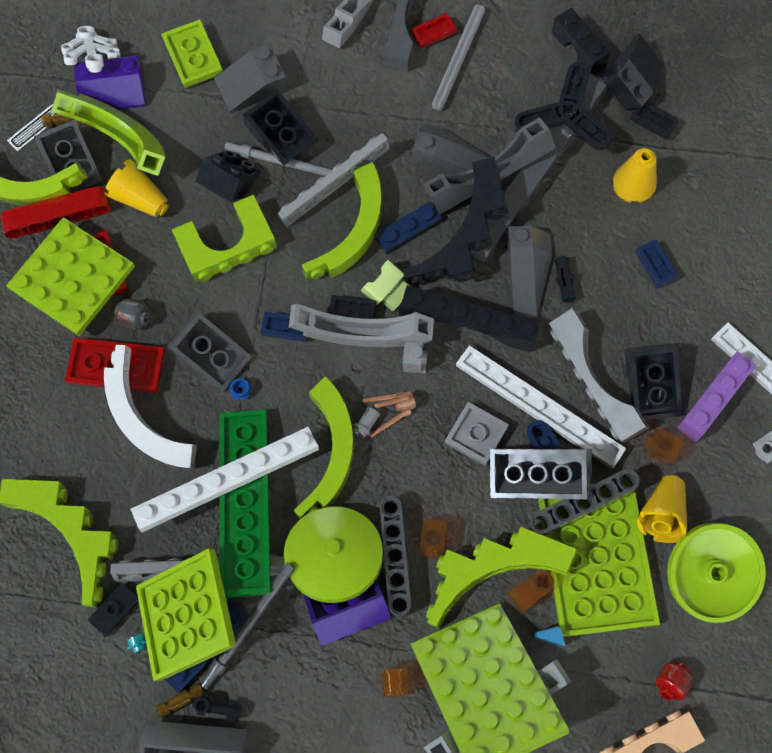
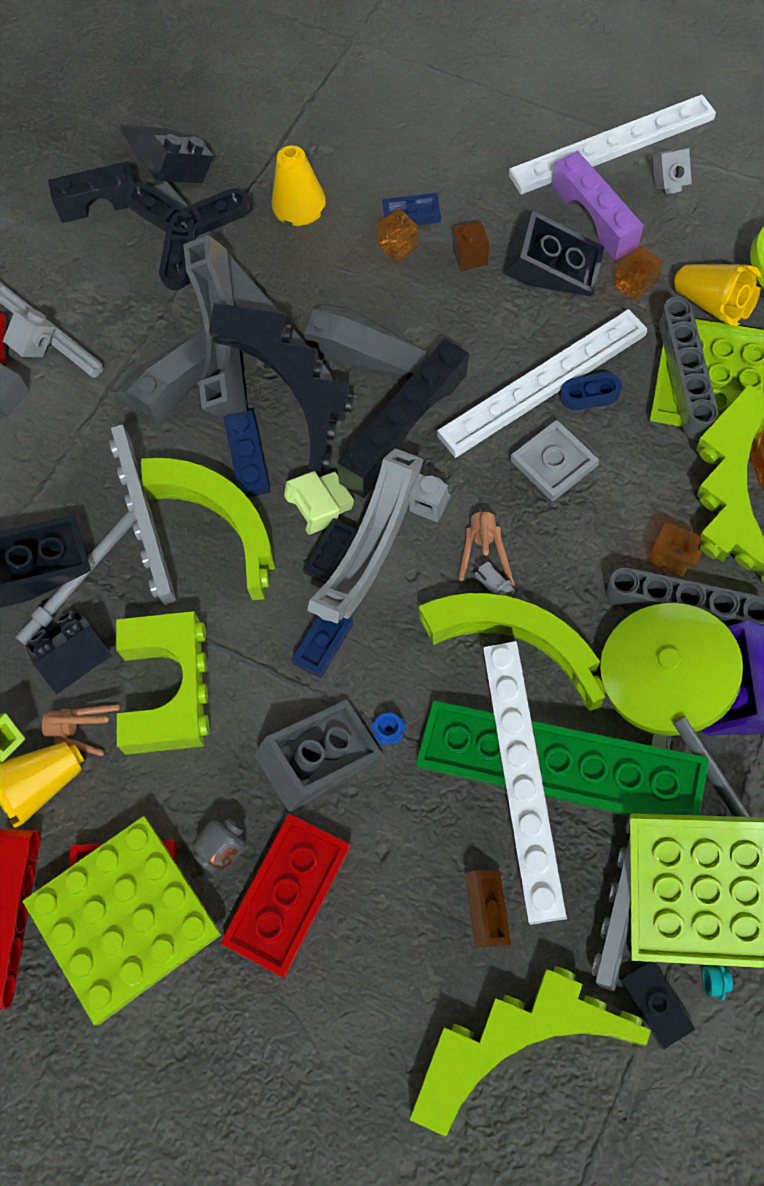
camera: 65 degrees left, 5 degrees down
(132, 424) = (437, 864): white arch -> none
(141, 487) = (487, 908): none -> reddish brown plate
(179, 194) = (64, 723): none -> nougat plant
(444, 51) = (29, 333): none -> light grey brick
(540, 473) = (637, 396): dark grey slope -> none
(565, 279) = (391, 305): black pin -> none
(573, 335) = (467, 315): light grey arch -> none
(624, 260) = (397, 235): none -> clear orange brick
(638, 316) = (470, 245): none -> reddish brown brick
(654, 120) = (233, 156): black plate -> none

